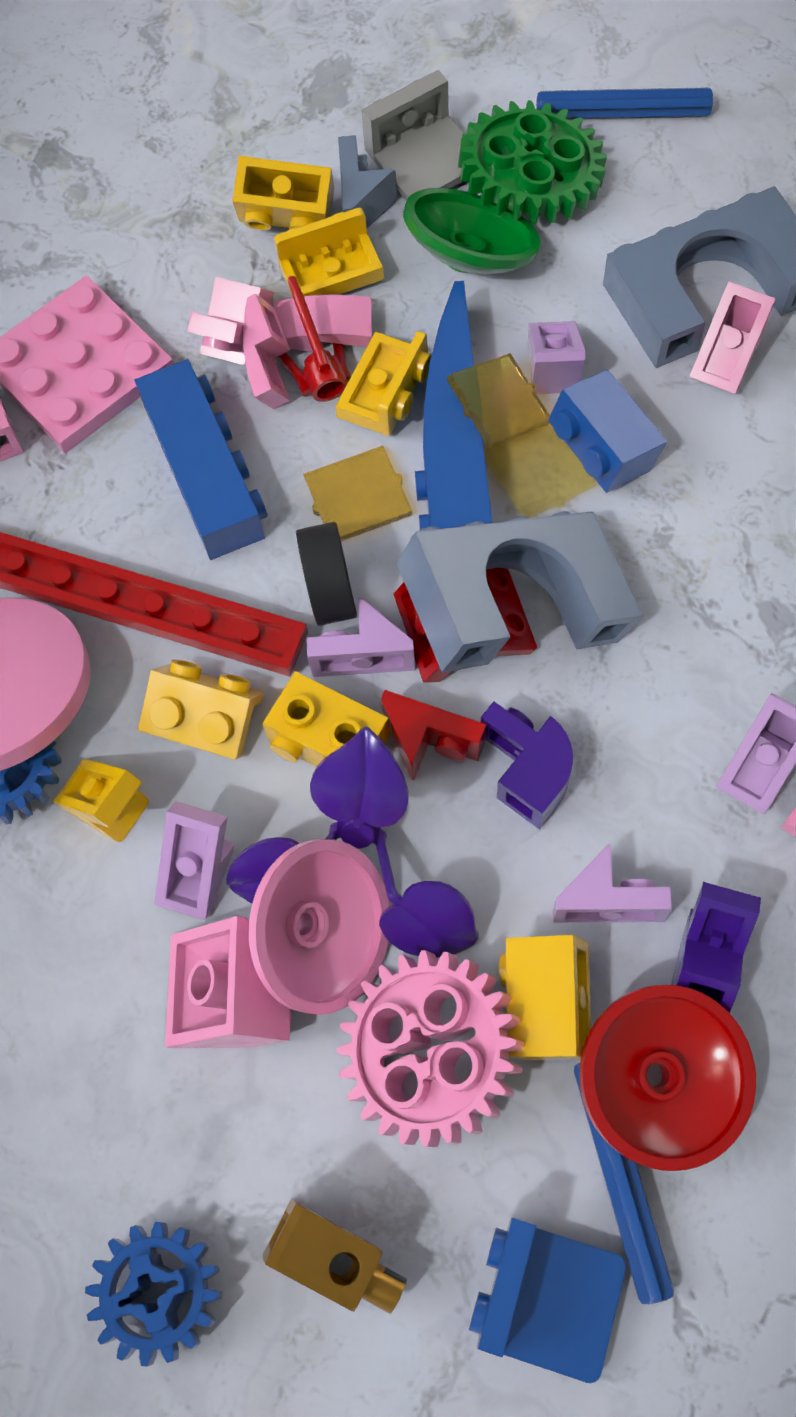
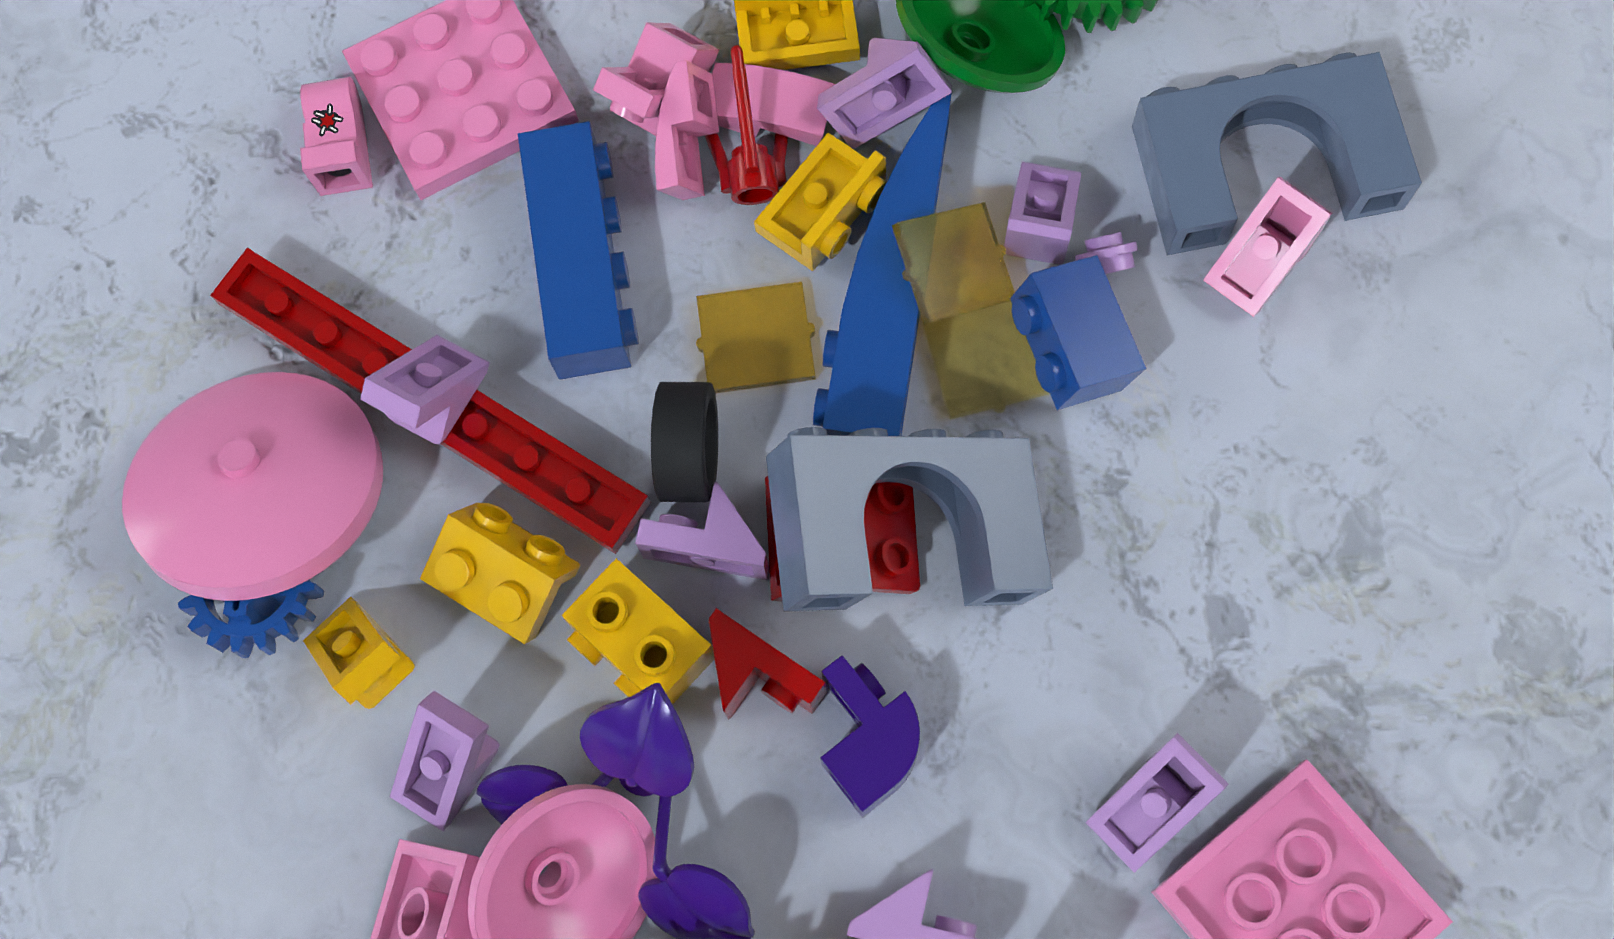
camera: 15 degrees right, 5 degrees up
(109, 580) = (426, 387): none -> lavender slope
(418, 284) = (888, 90): none -> lavender slope
(619, 368) = (1111, 252): none -> lavender plate

